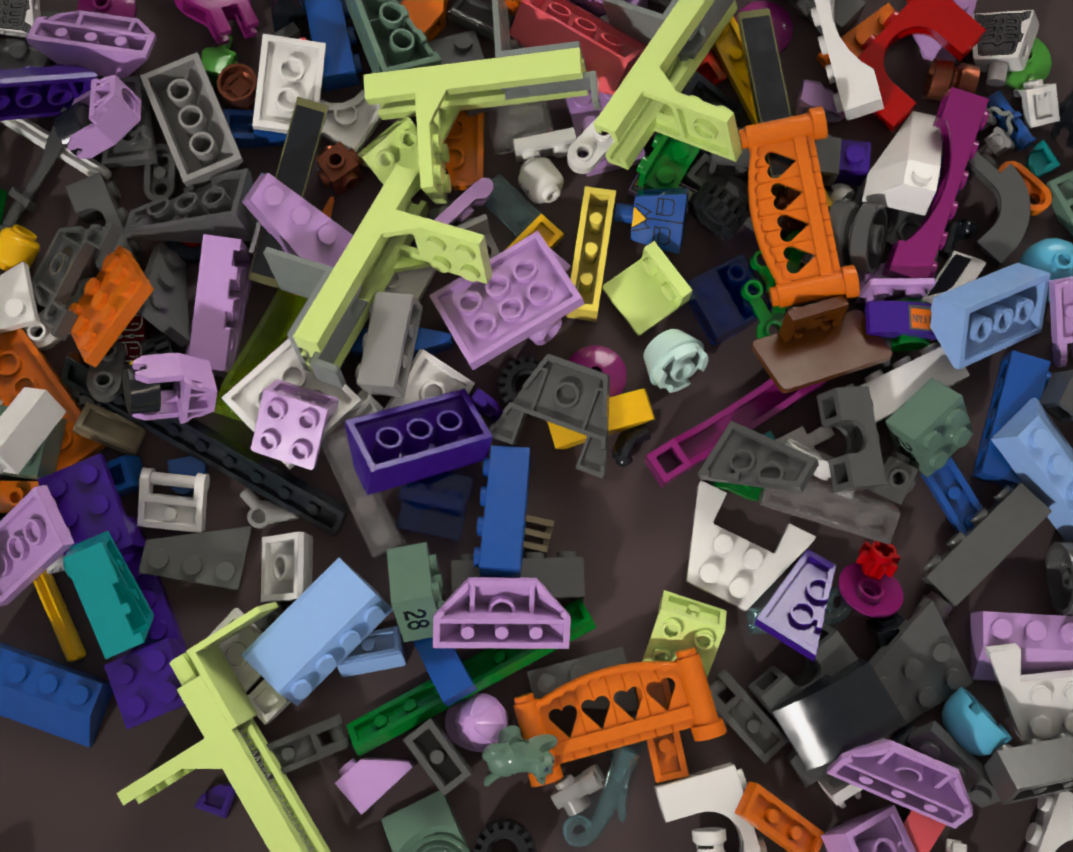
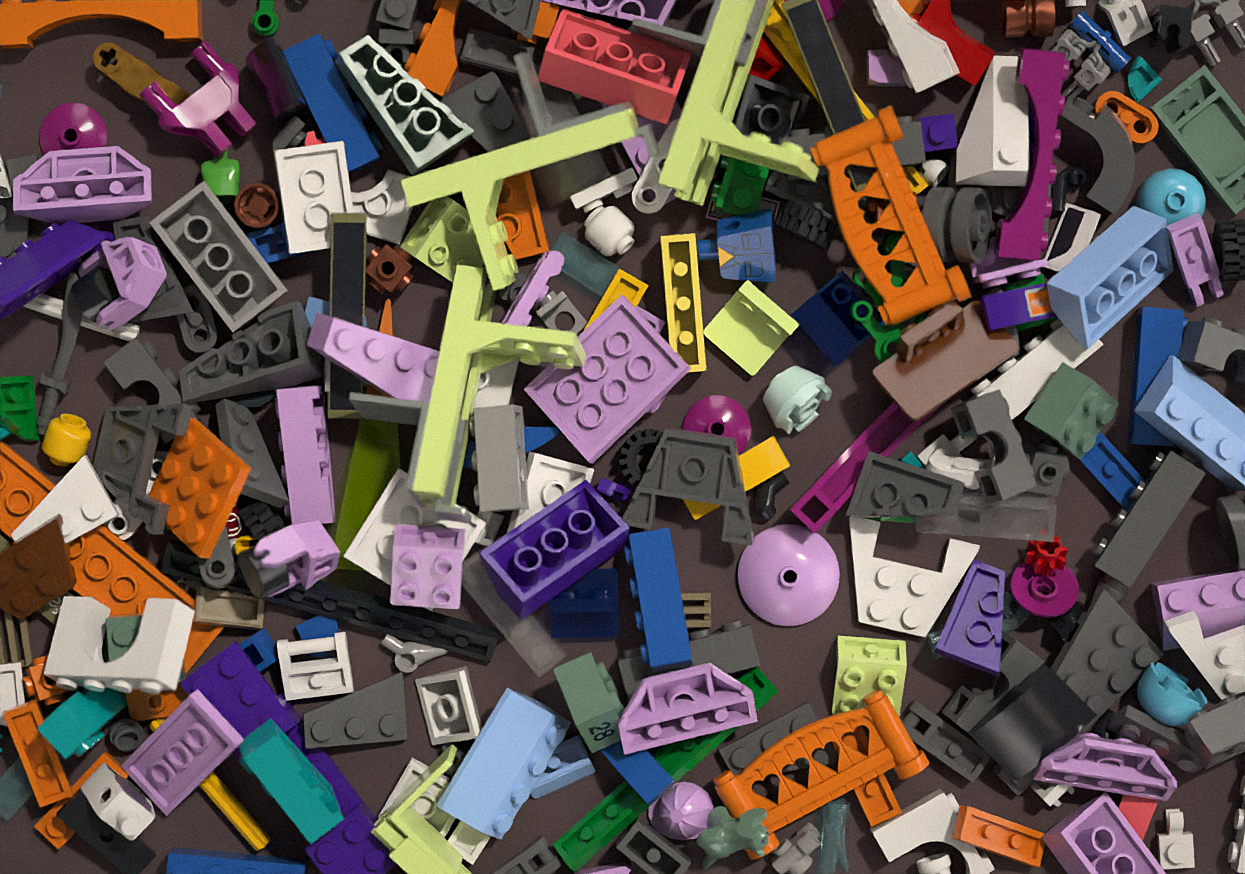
camera: 10 degrees left, 10 degrees up
(623, 545) = (767, 560): none -> lavender dish

